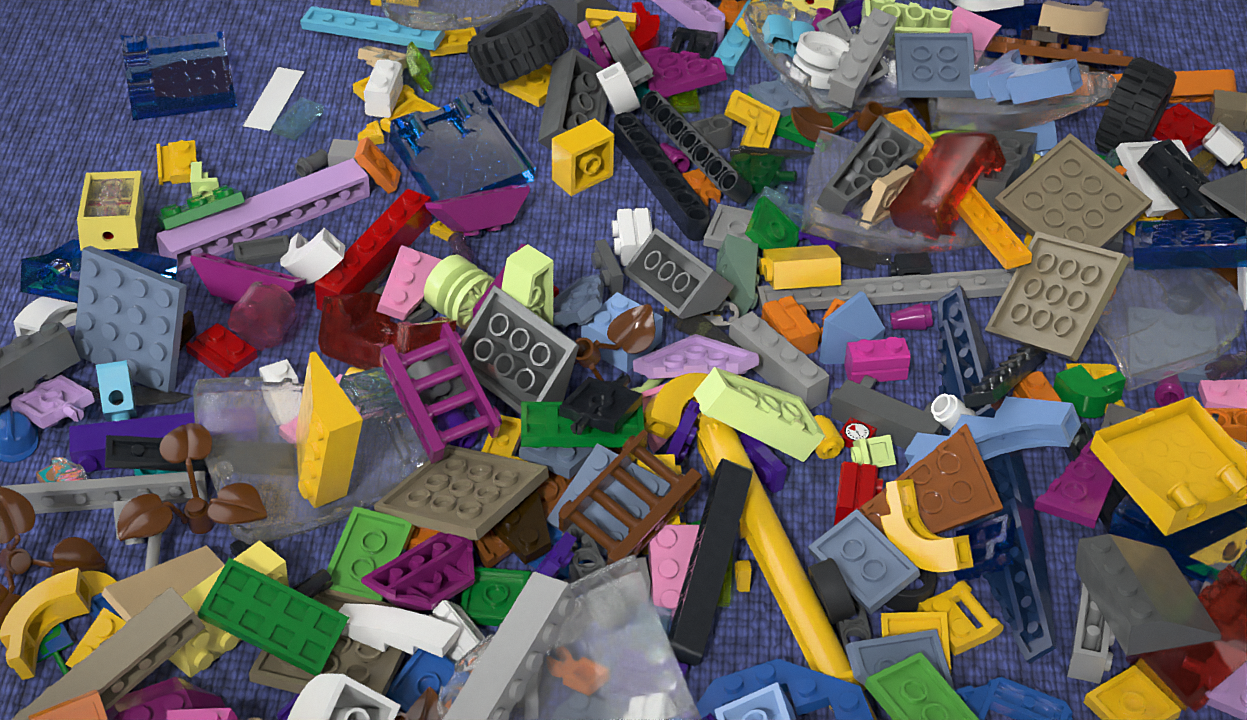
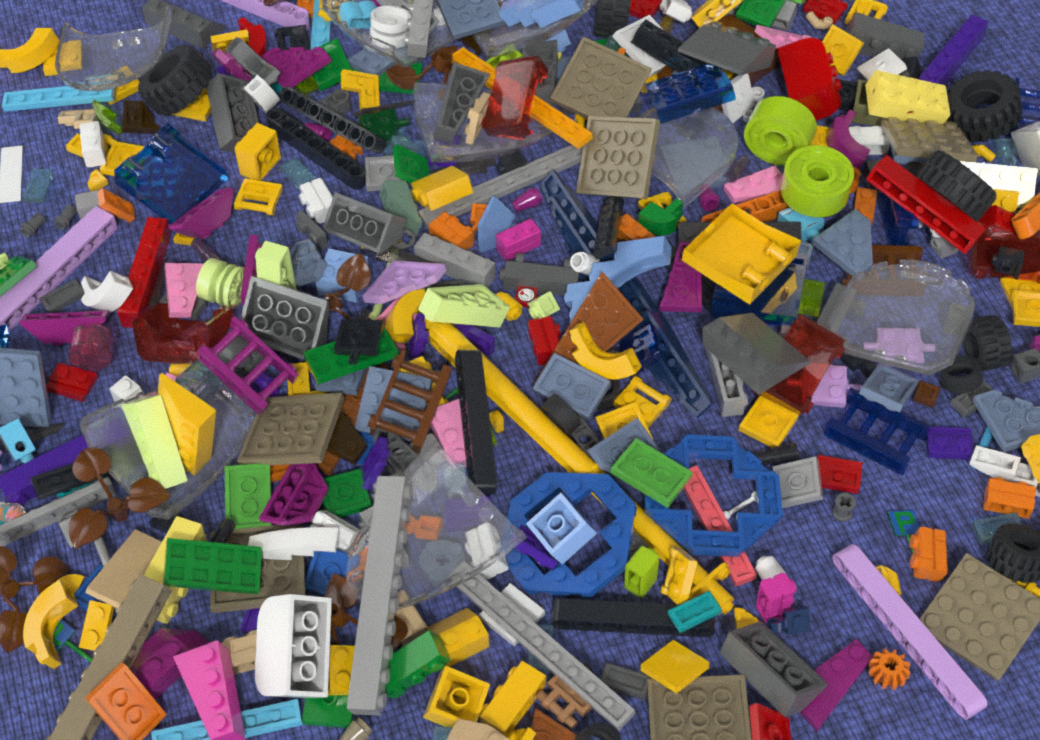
camera: 20 degrees left, 10 degrees up
(262, 162) = (28, 229): none -> dark grey pin
(279, 442) = (155, 440): none -> yellowish green wedge
(453, 77) = (137, 118): none -> dark brown wing
(562, 203) = (258, 191): none -> yellow plate
(622, 195) = (296, 173): none -> clear light blue plate
(716, 97) = (331, 72): none -> green plate

